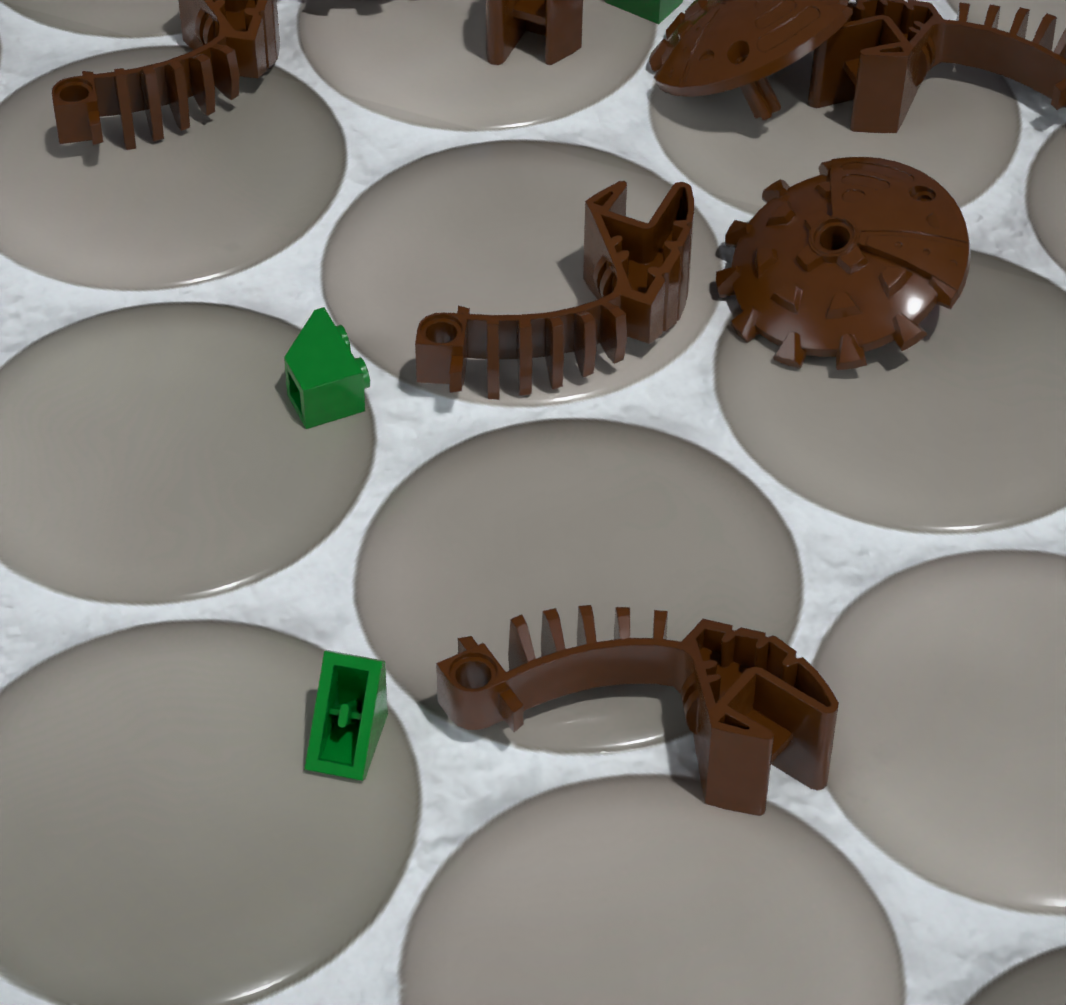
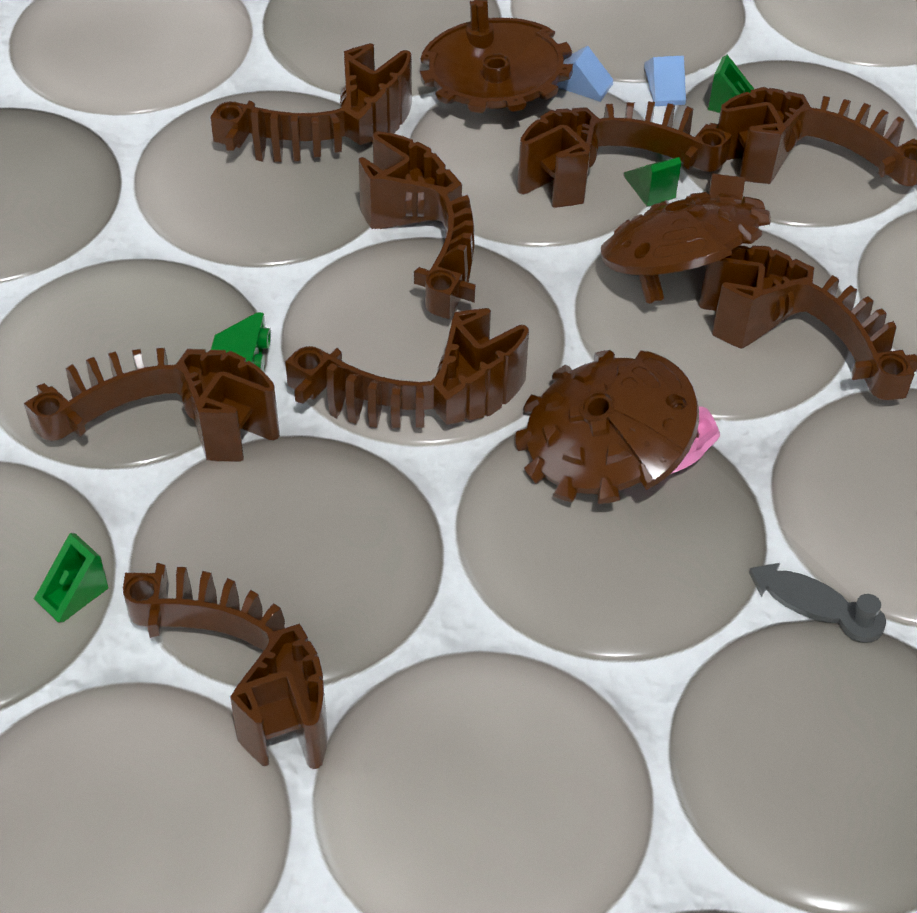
camera: 30 degrees right, 5 degrees up
(352, 416) = (215, 387): none -> reddish brown piece
(380, 91) = (414, 186): none -> reddish brown piece

